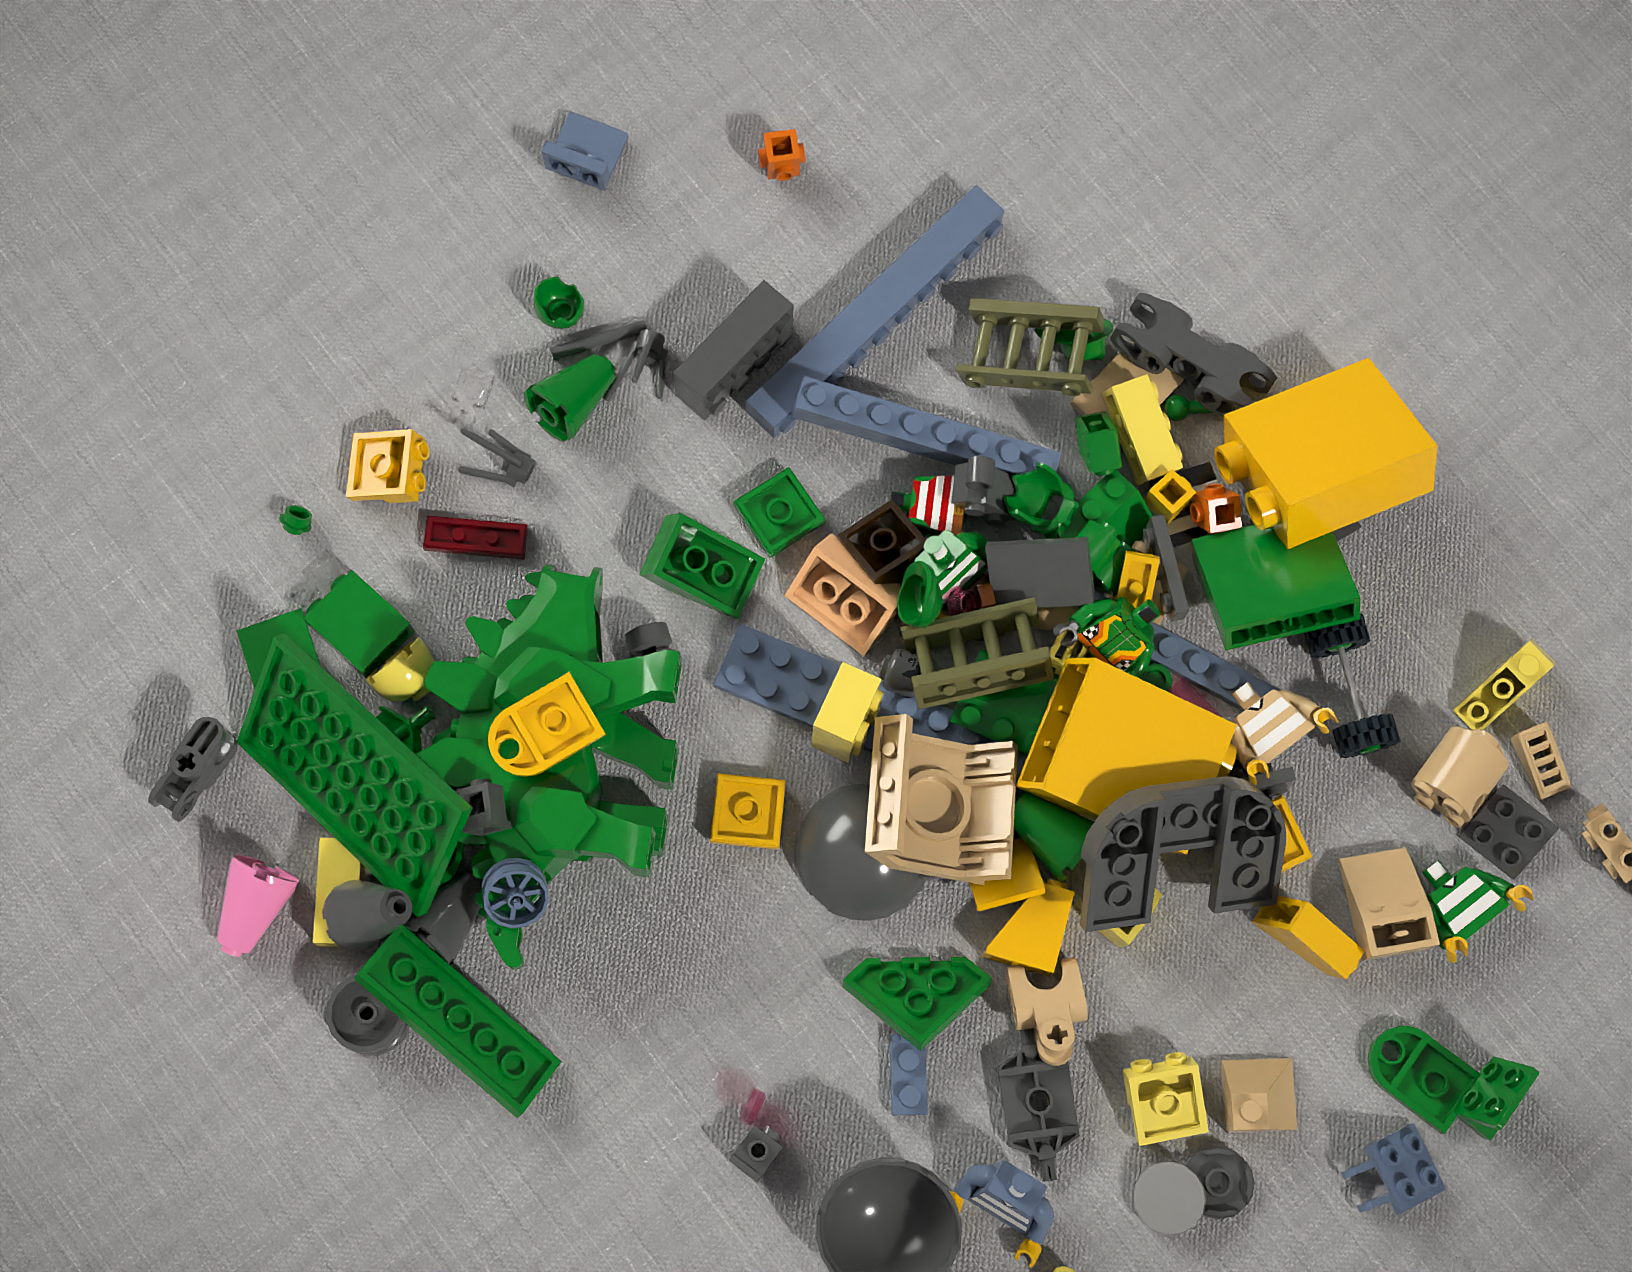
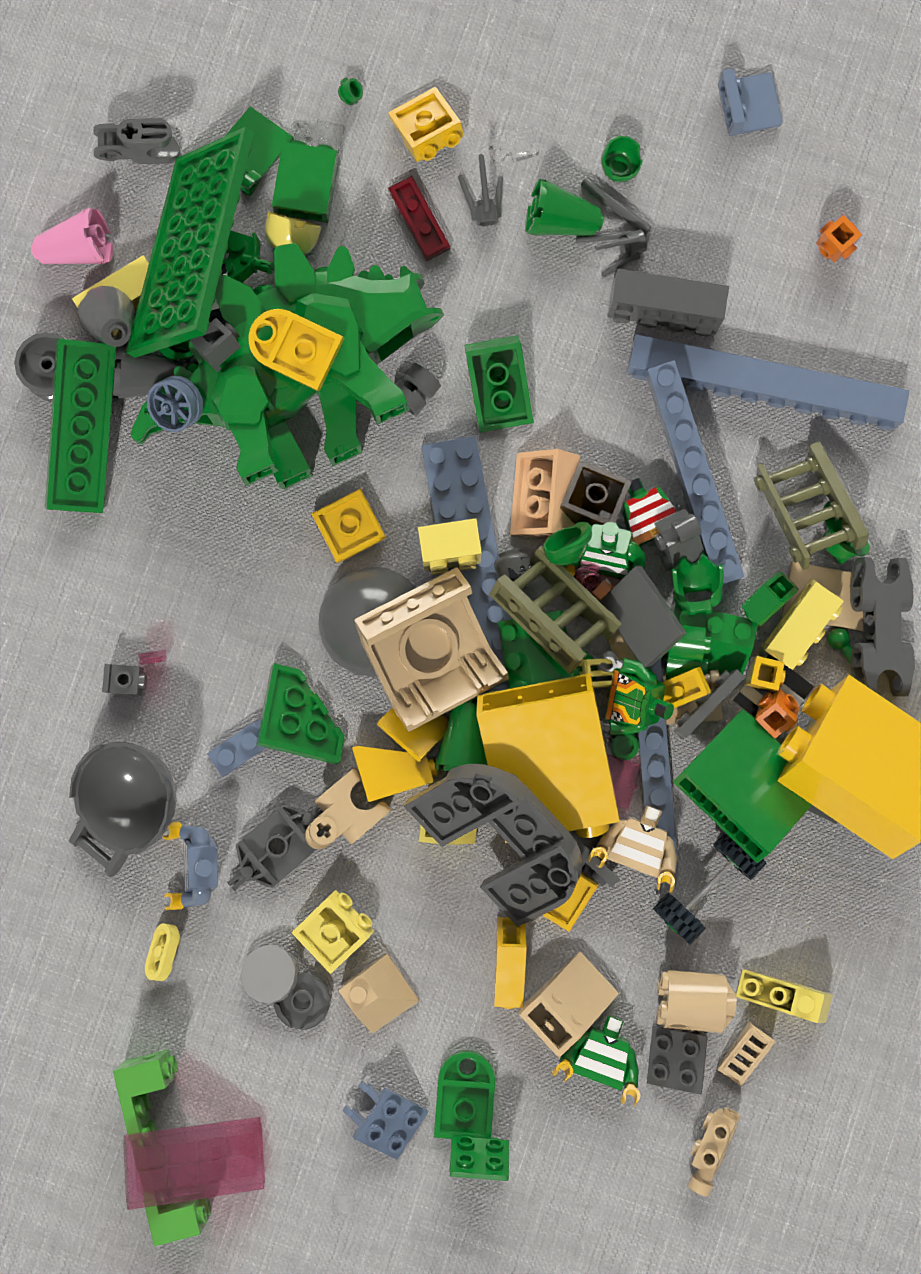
camera: 60 degrees right, 10 degrees up
(779, 512) = (573, 410): green plate -> none

